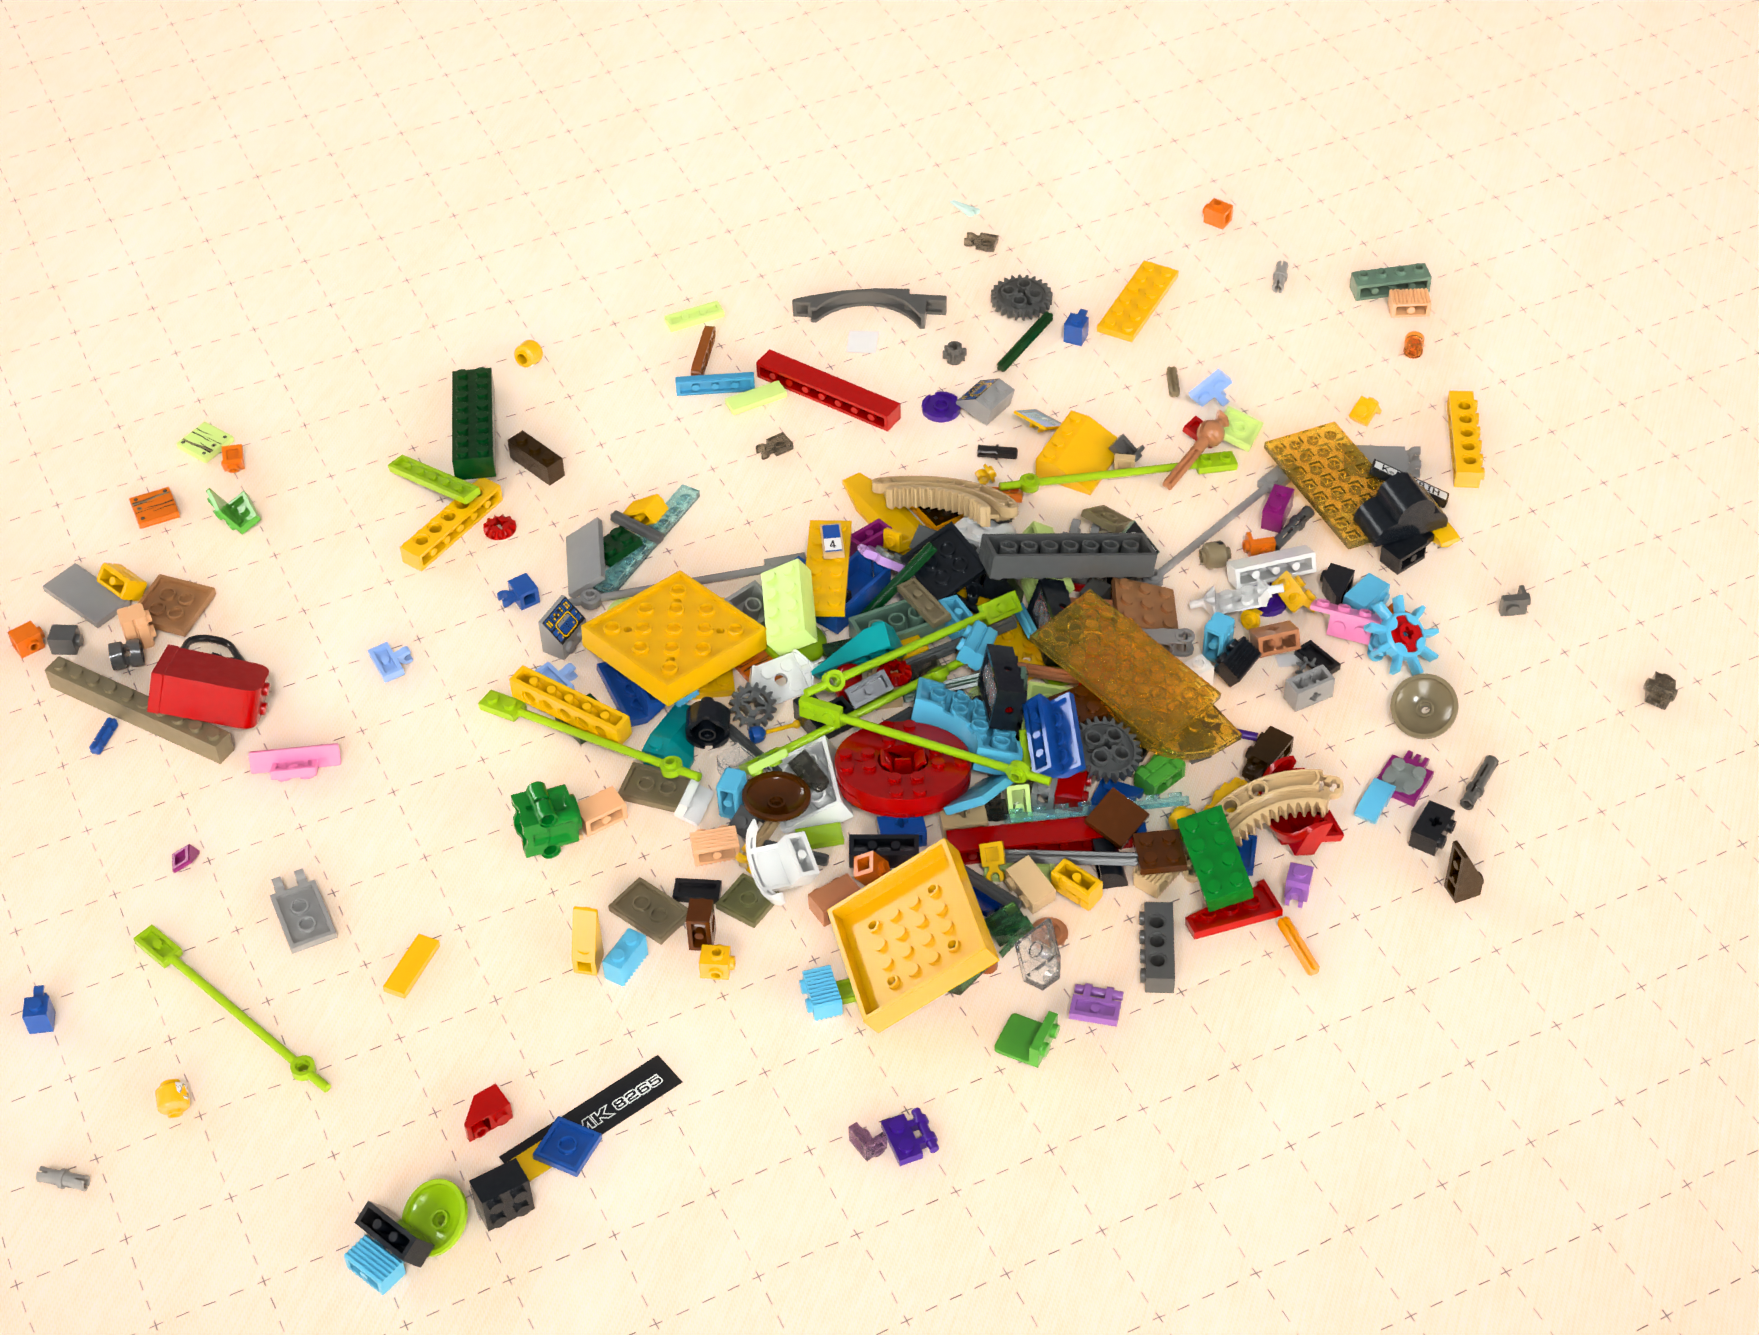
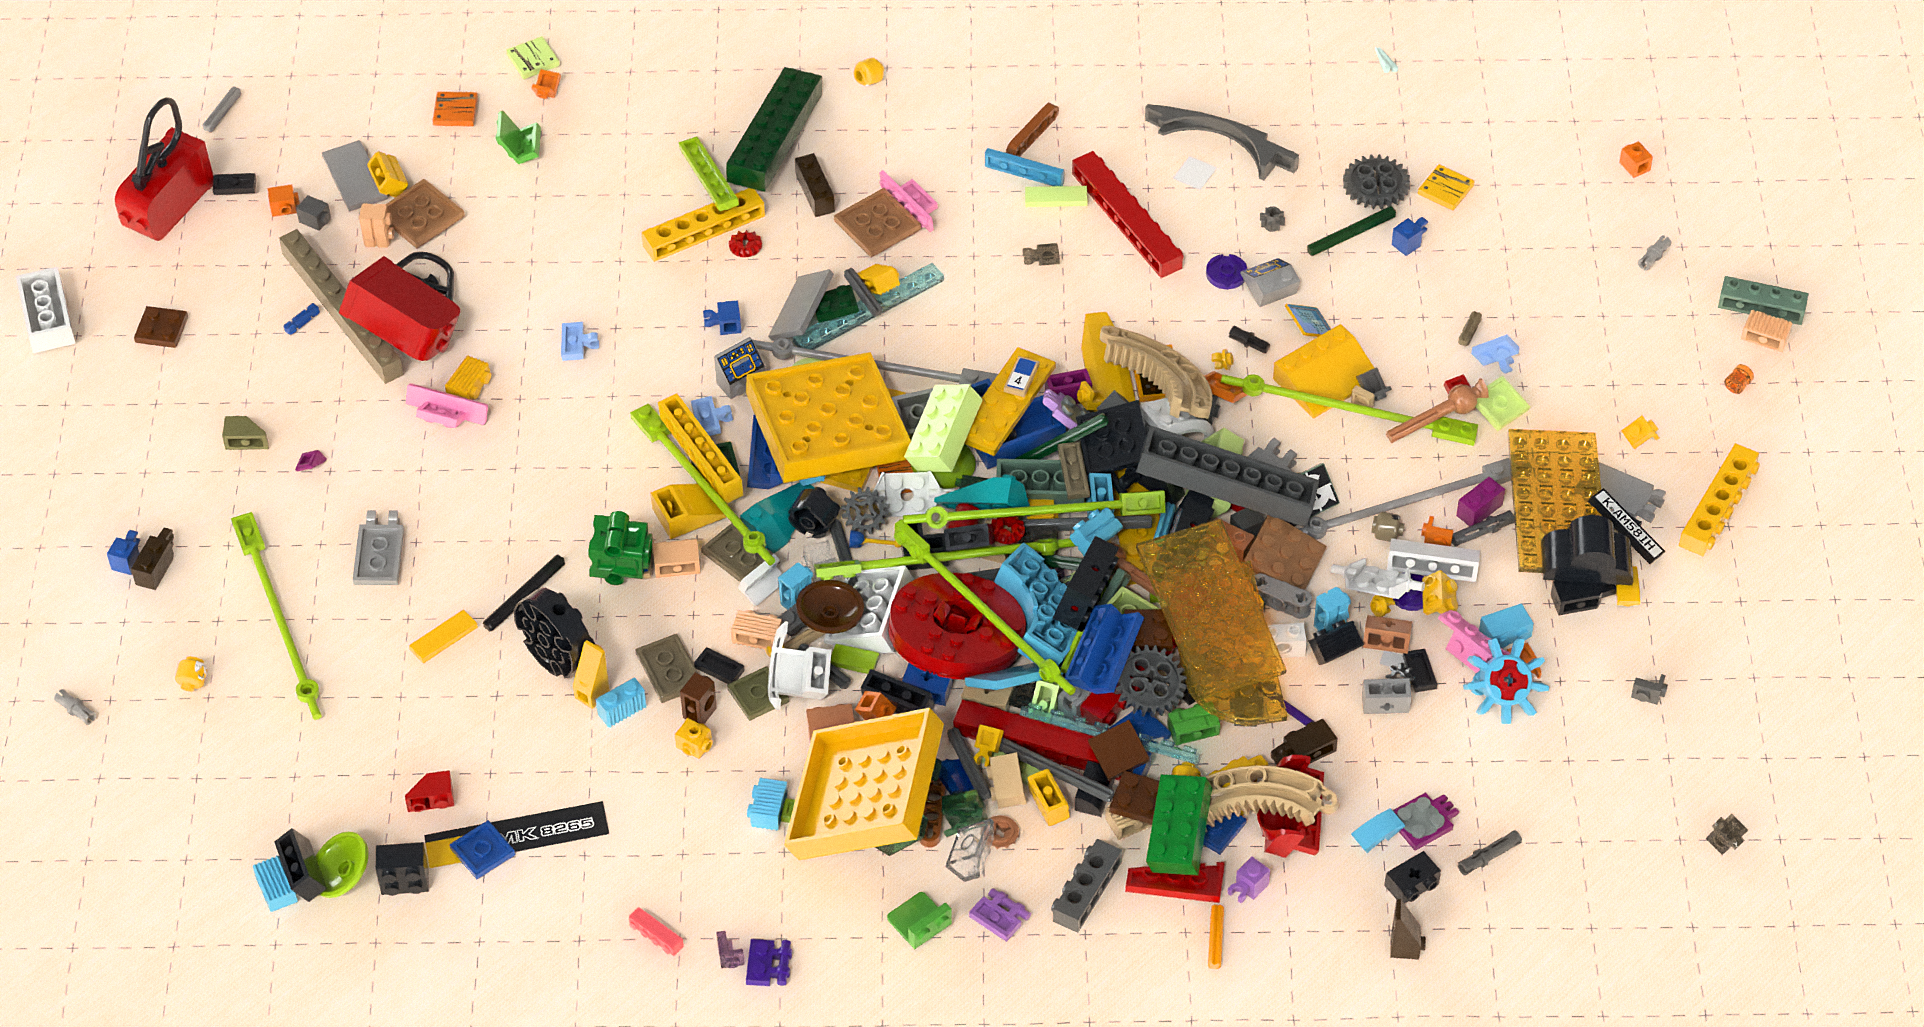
camera: 25 degrees right, 5 degrees up
(73, 1006) = (154, 560): none -> dark brown hinge
(104, 857) = (243, 434): none -> olive slope
(119, 657) = (356, 247): dark grey wheel -> none
(304, 727) = (469, 378): none -> yellow brick
(468, 897) = (527, 588): none -> black axle
(529, 915) = (552, 631): none -> black brick
(582, 765) = (684, 508): none -> yellow slope
(611, 469) = (877, 222): none -> medium nougat plate
(631, 440) = (913, 199): none -> bright pink bracket
(694, 316) = (1049, 86): yellowish green tile -> none
(785, 1152) = (656, 931): none -> coral piece
(810, 771) = (872, 594): clear smoke leg -> none
(984, 241) = (1379, 106): clear smoke plate -> none
(1079, 284) = (1446, 187): none -> yellow tile
(1106, 518) = (1308, 450): dark tan tile -> none
(1137, 301) = (1492, 227): yellow plate -> none
(1336, 582) = (1486, 600): black slope -> none
(1422, 692) = (1474, 748): dark tan dish -> none

